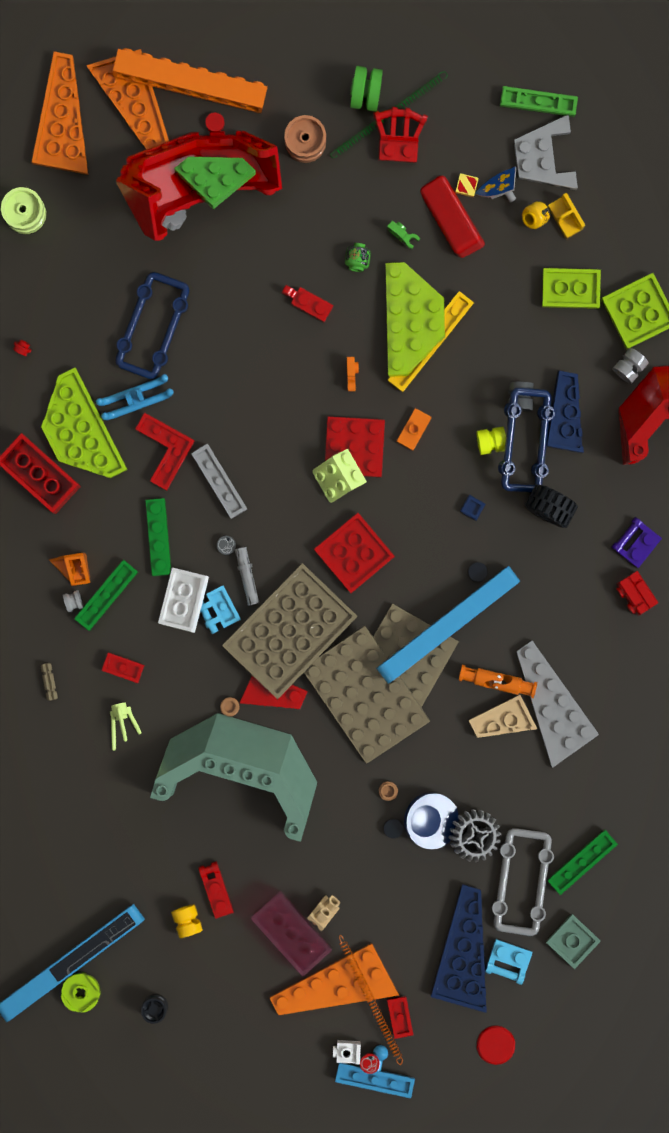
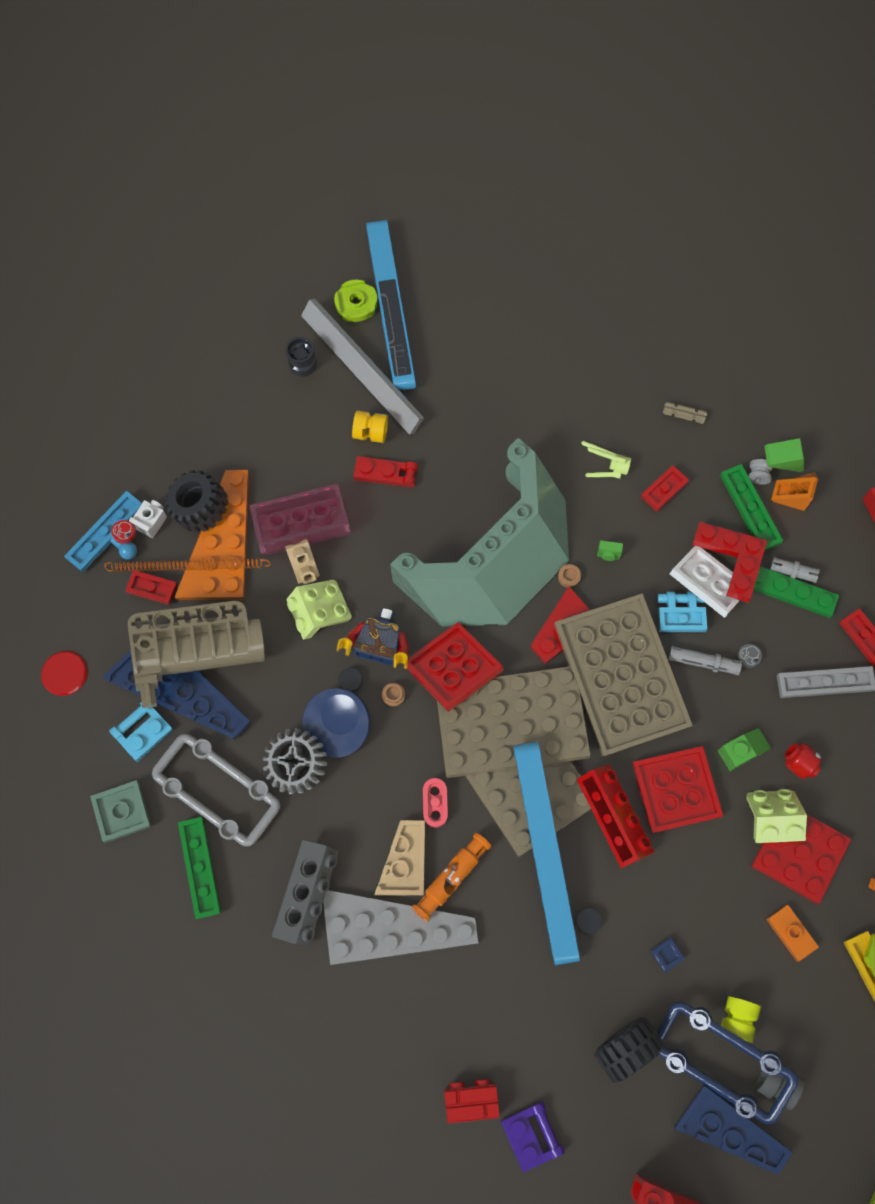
camera: 125 degrees right, 15 degrees down
(52, 588) = (785, 455): none -> bright green slope
(136, 957) = (362, 366): none -> light grey tile
(141, 541) = (795, 569): none -> light grey pin
(144, 587) = (746, 548): none -> red plate
(196, 685) = (609, 550): none -> bright green plate
(288, 473) = (802, 760): none -> red head
(299, 517) = (744, 749): none -> bright green slope
(322, 1034) = (206, 510): none -> black tyre
(347, 757) = (453, 666): none -> red plate
(351, 882) = (317, 607): none -> yellowish green bracket
(355, 822) = (377, 641): none -> torso
(397, 588) = (615, 815): none -> red brick
(434, 956) = (191, 644): none -> dark tan piece
(451, 719) = (435, 803): none -> coral plate
(570, 781) = (295, 901): none -> dark grey brick

